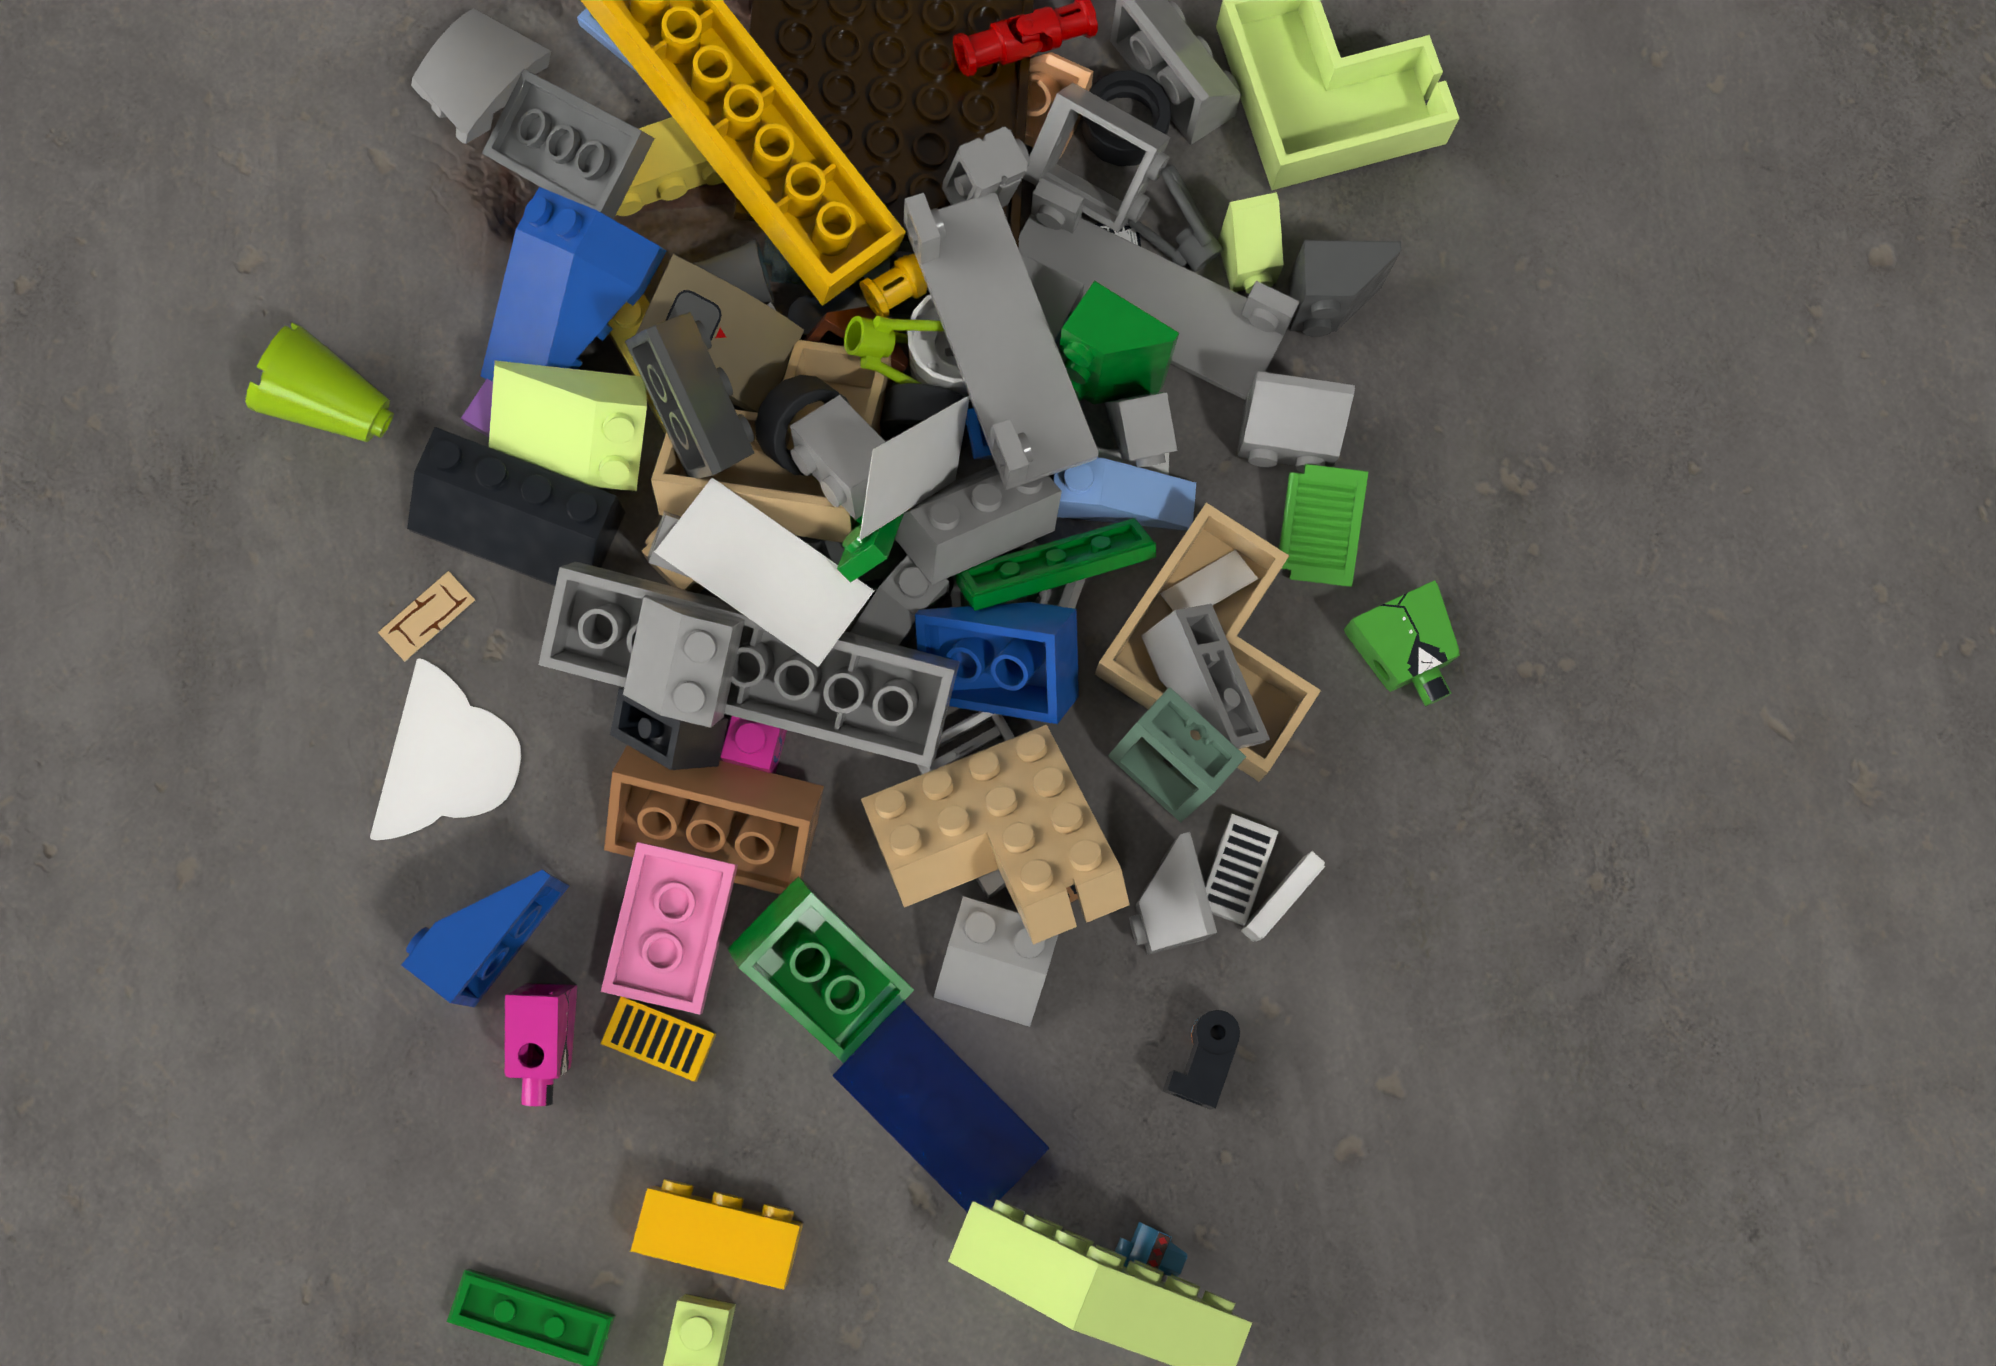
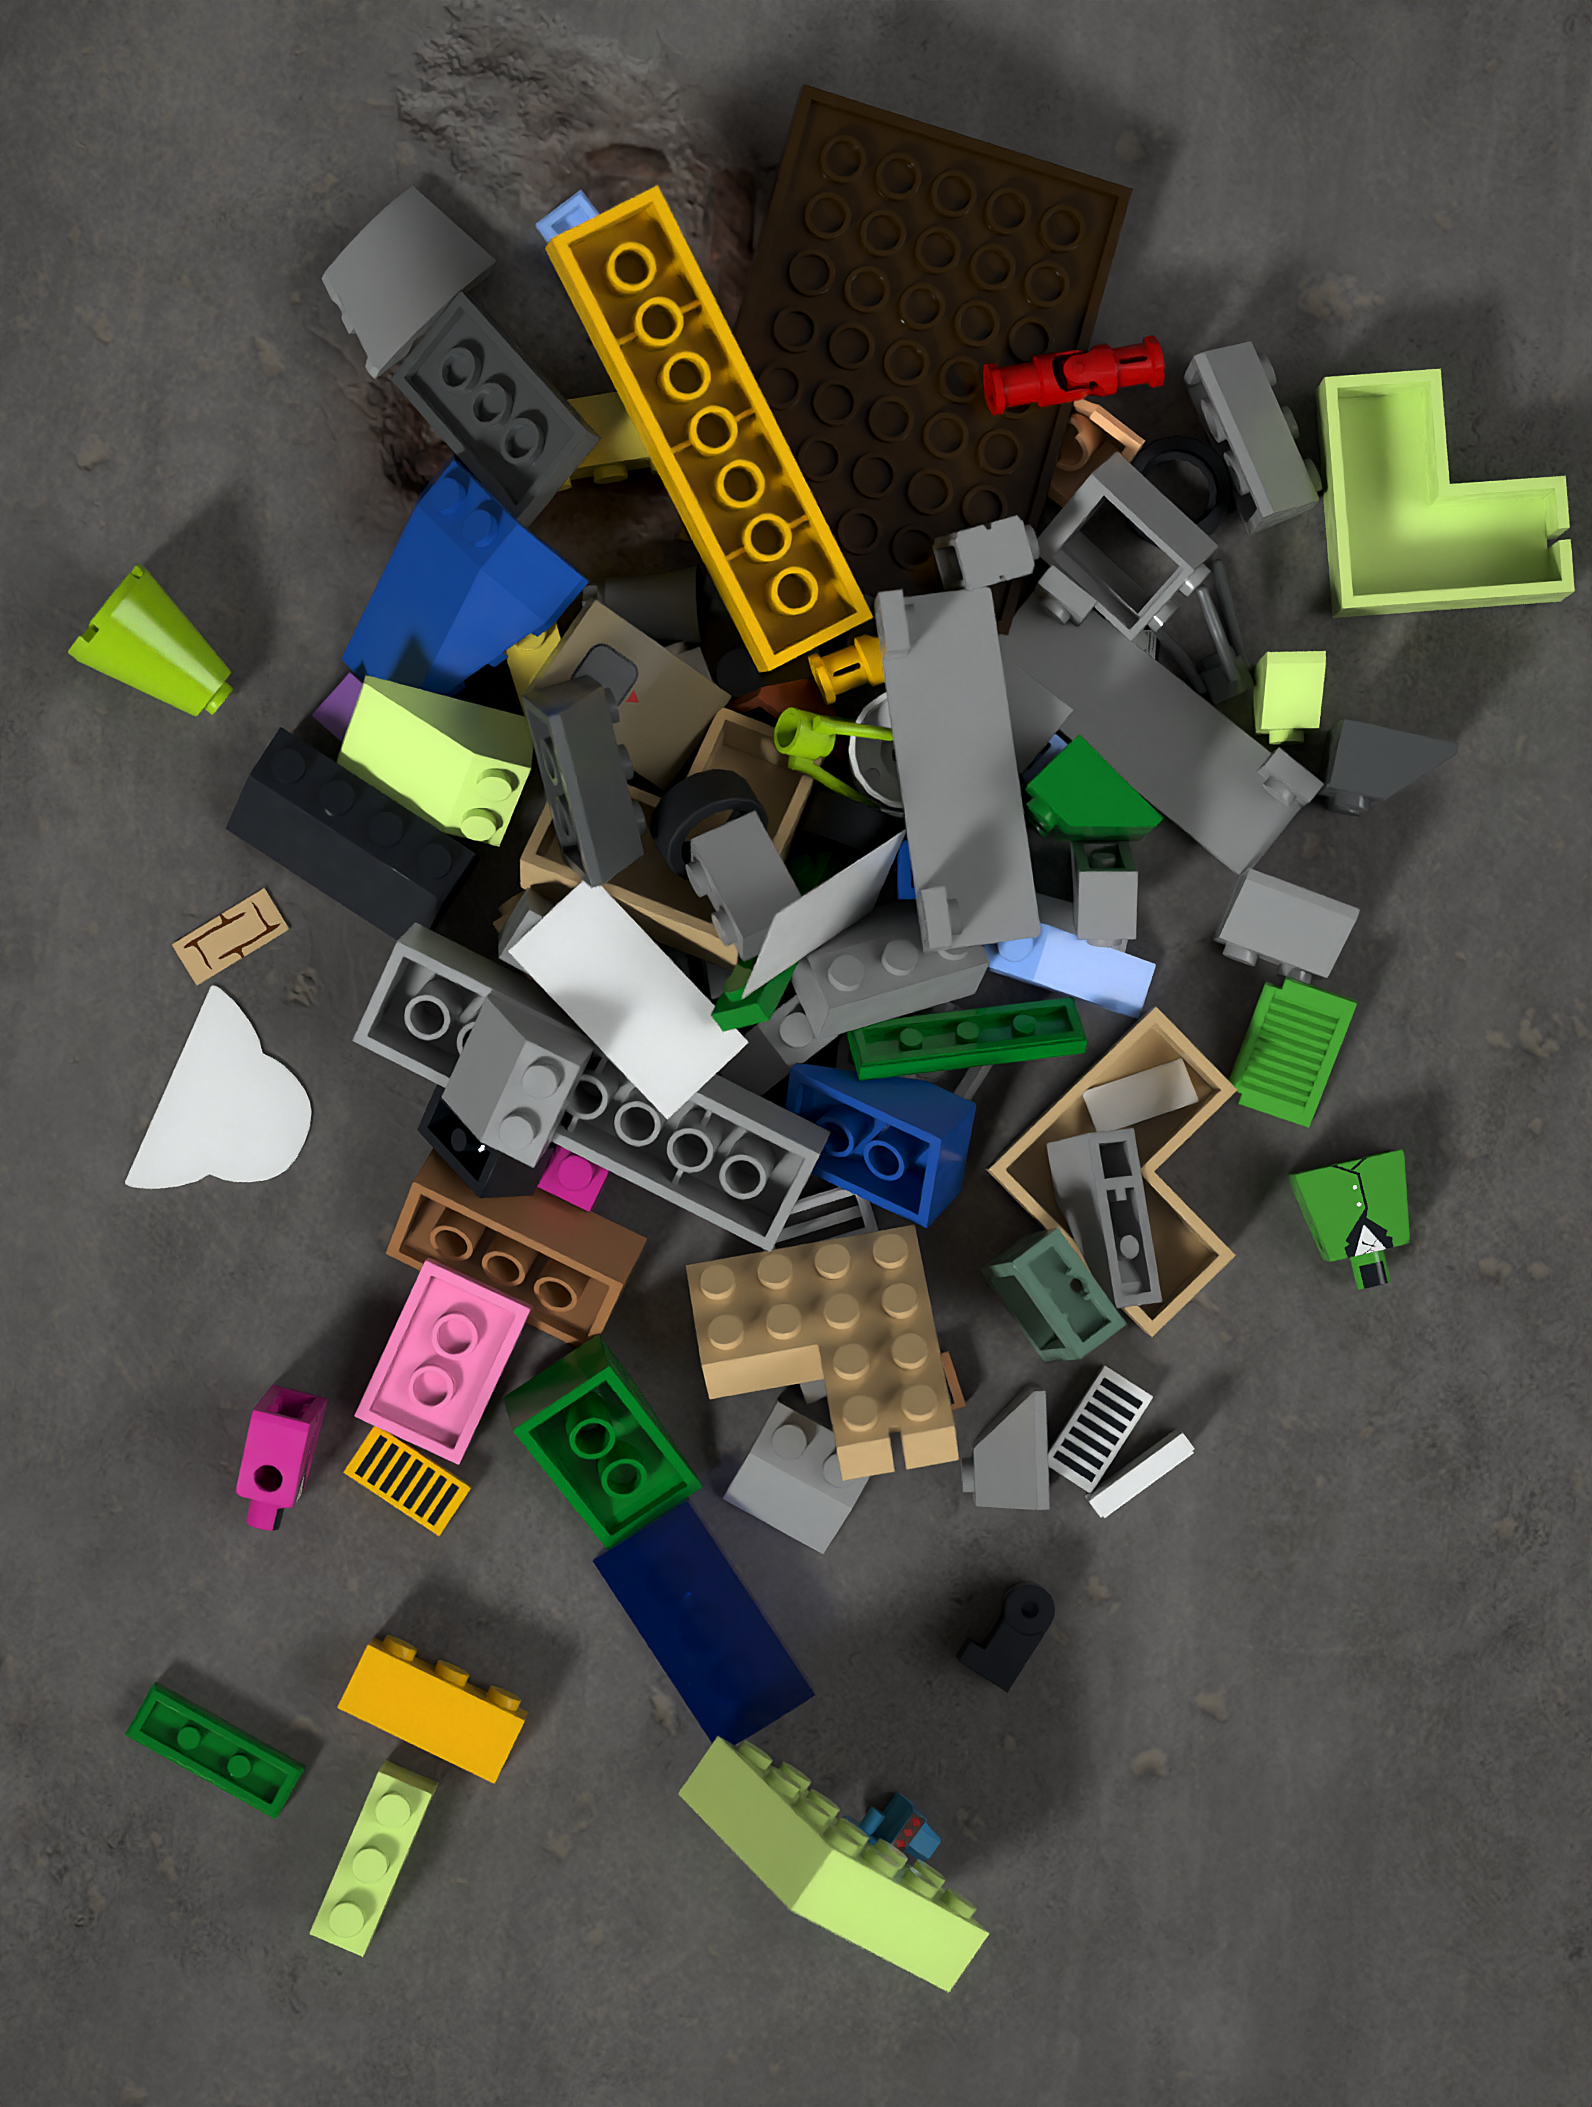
camera: 15 degrees right, 10 degrees up
(474, 945) = (214, 1345): blue slope -> none

